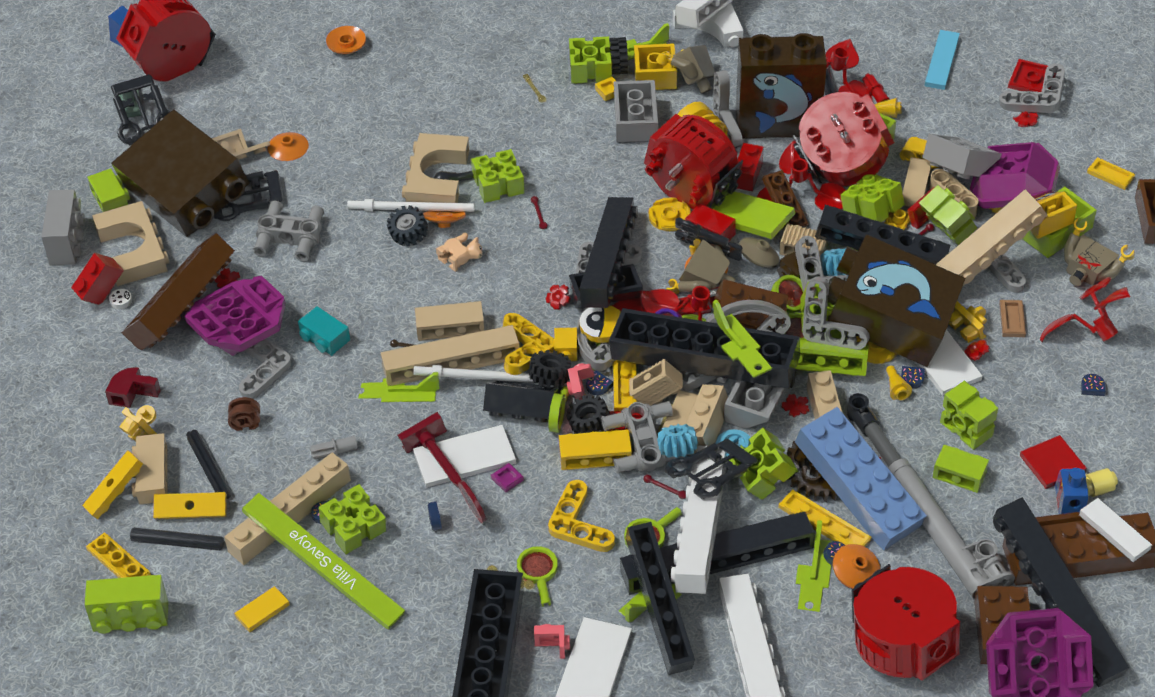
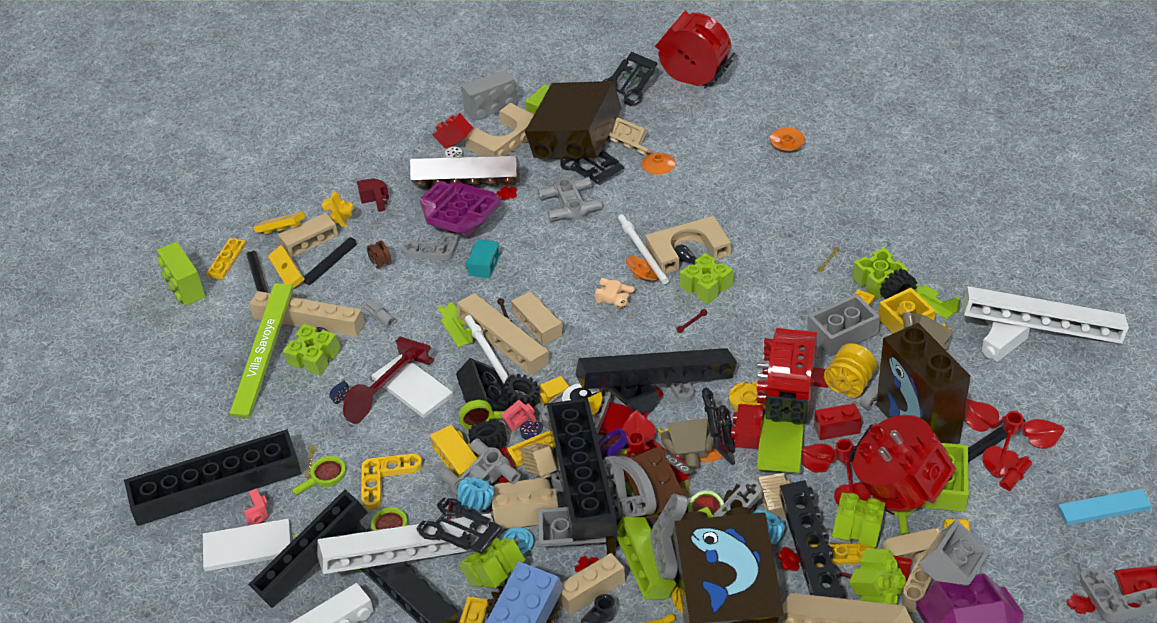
camera: 65 degrees right, 5 degrees down
(262, 609) = (217, 343): yellow tile -> none
(407, 225) = (616, 253): black wheel -> none
(507, 477) = (404, 418): magenta tile -> none
(517, 361) = (541, 375): yellow beam -> none
(742, 344) = (582, 484): lime piece -> none
(759, 252) = (735, 471): dark tan dish -> none
(779, 191) = (822, 452): reddish brown tile -> none
(889, 107) = (999, 491): yellow cone -> none

